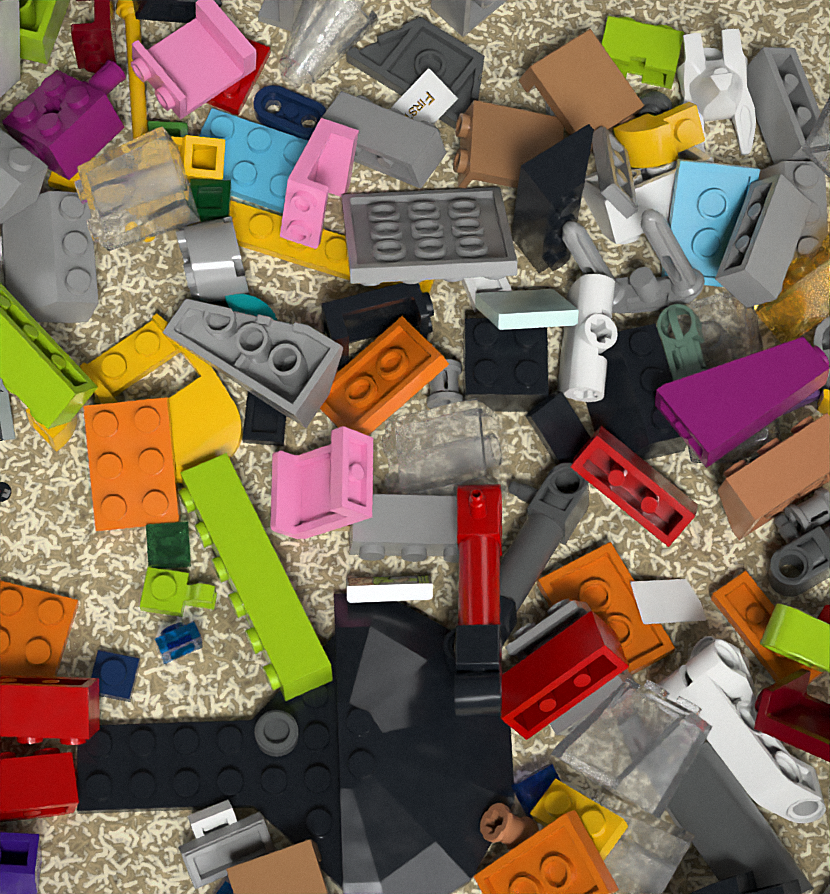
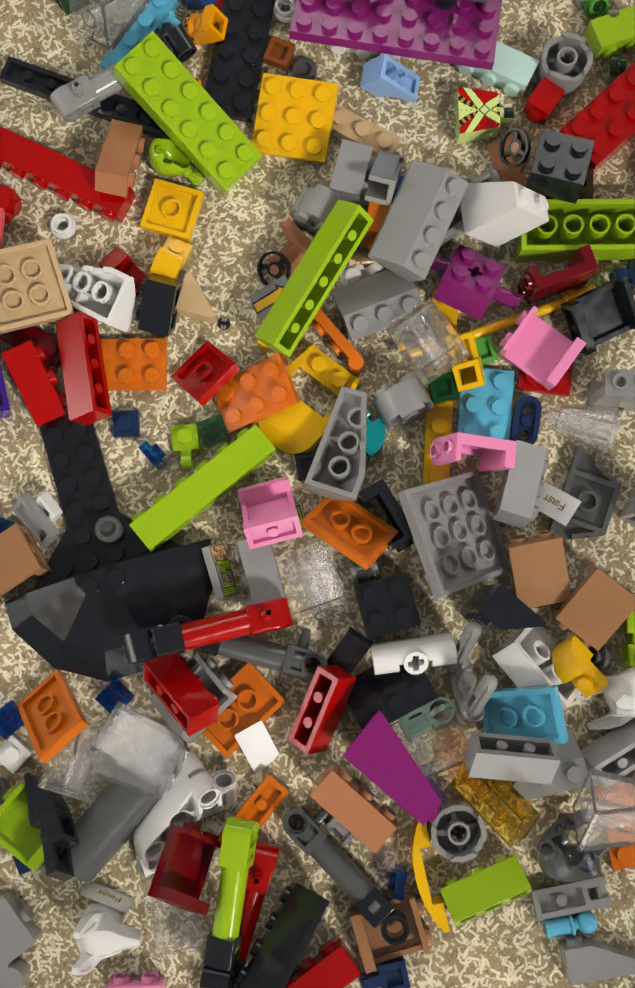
camera: 80 degrees right, 15 degrees up
(74, 529) = (205, 373): none -> red plate
(98, 325) = (338, 343): none -> orange plate
(505, 827) = (83, 679): nougat bush -> none
(526, 309) = (423, 612): light aqua tile -> none
(601, 824) = (96, 716): yellow plate -> none
(614, 172) = (534, 644): light grey tile -> none

